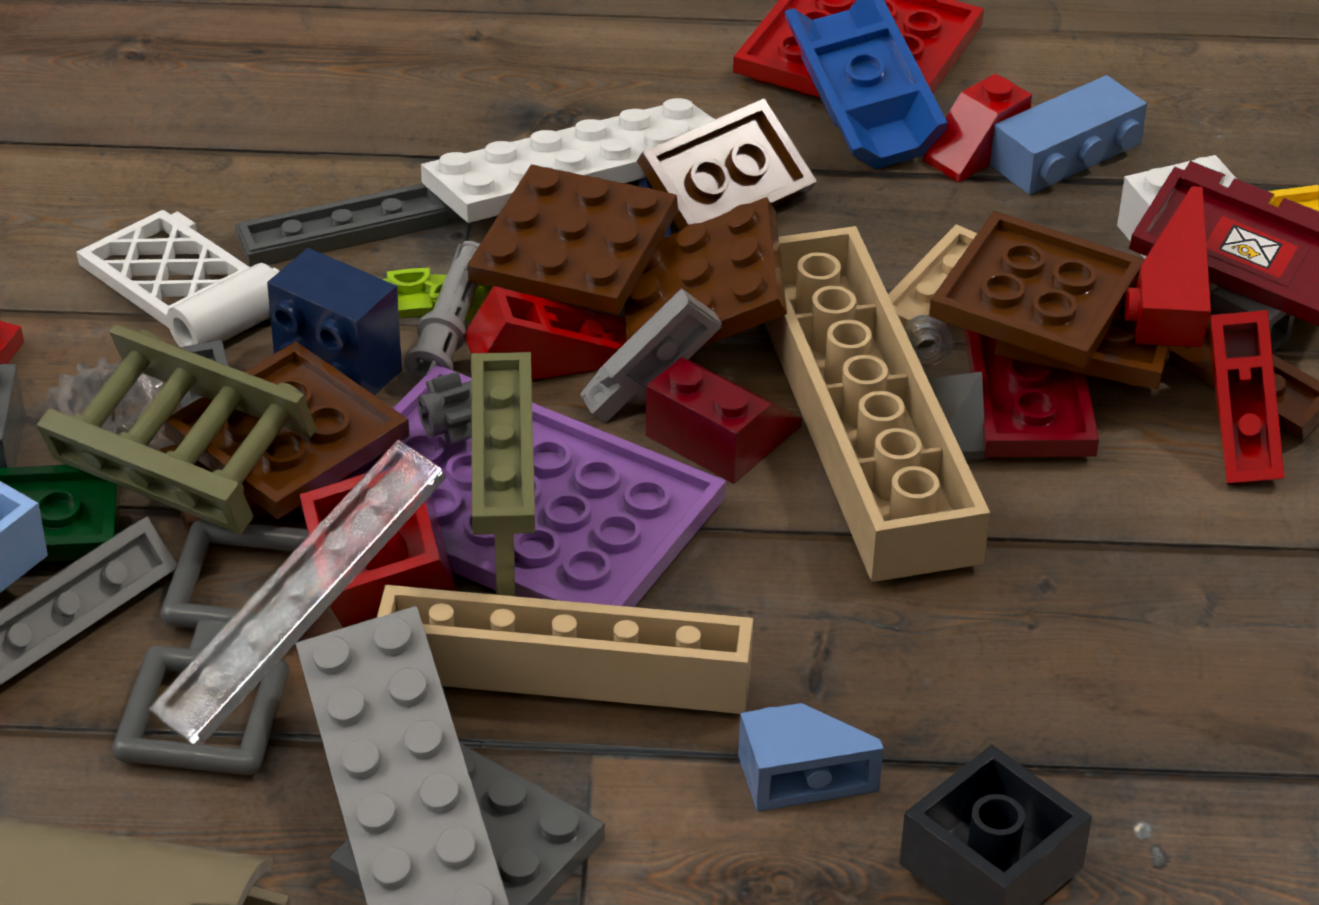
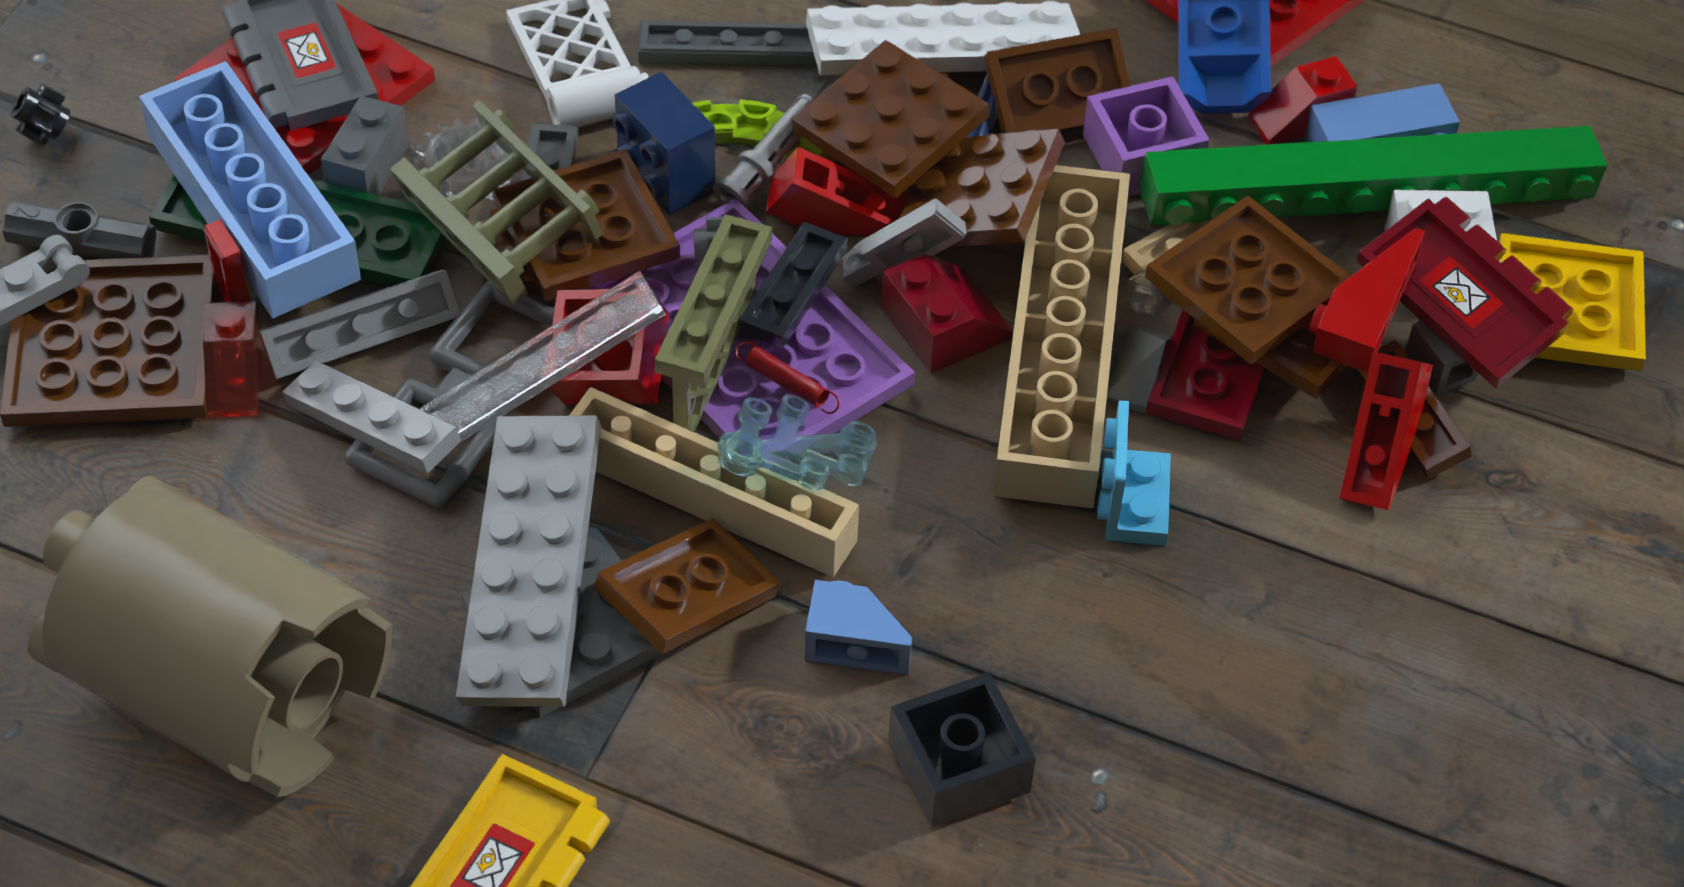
camera: 20 degrees right, 10 degrees up
(130, 695) = (372, 416): none -> light grey plate
(558, 420) = (792, 285): none -> black plate
(594, 765) = (686, 585): none -> reddish brown plate
(596, 521) = (787, 377): none -> red piece
(674, 587) = (745, 452): none -> clear light blue plant
(844, 186) = (1140, 120): none -> medium lavender brick
(1022, 532) = (1136, 485): none -> medium azure bracket
(1078, 173) = (1365, 172): none -> green brick

